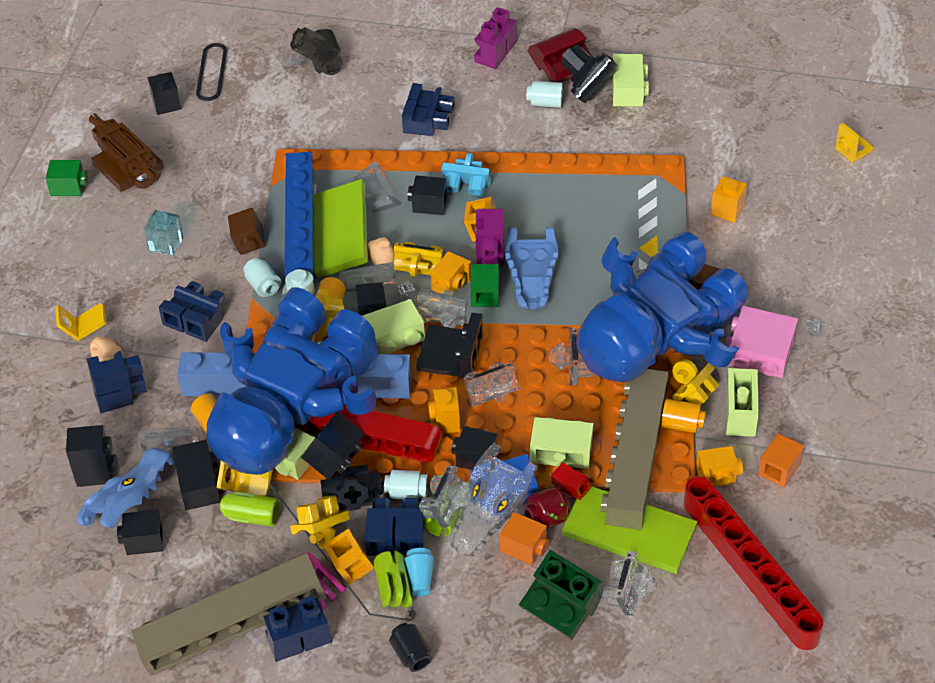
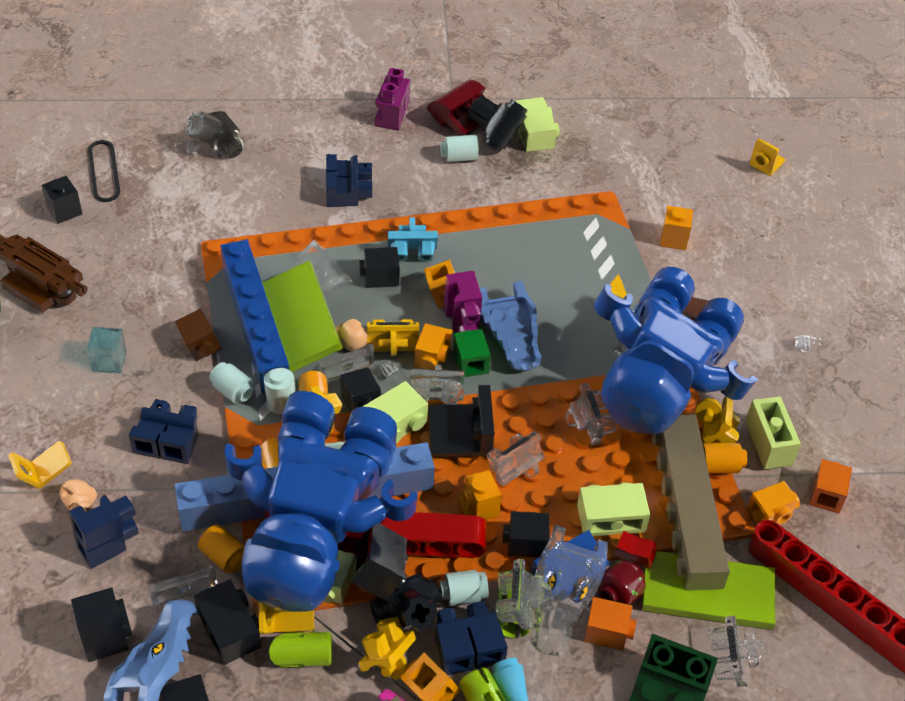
camera: 20 degrees left, 0 degrees up
(762, 340) = (771, 361): bright pink brick -> none

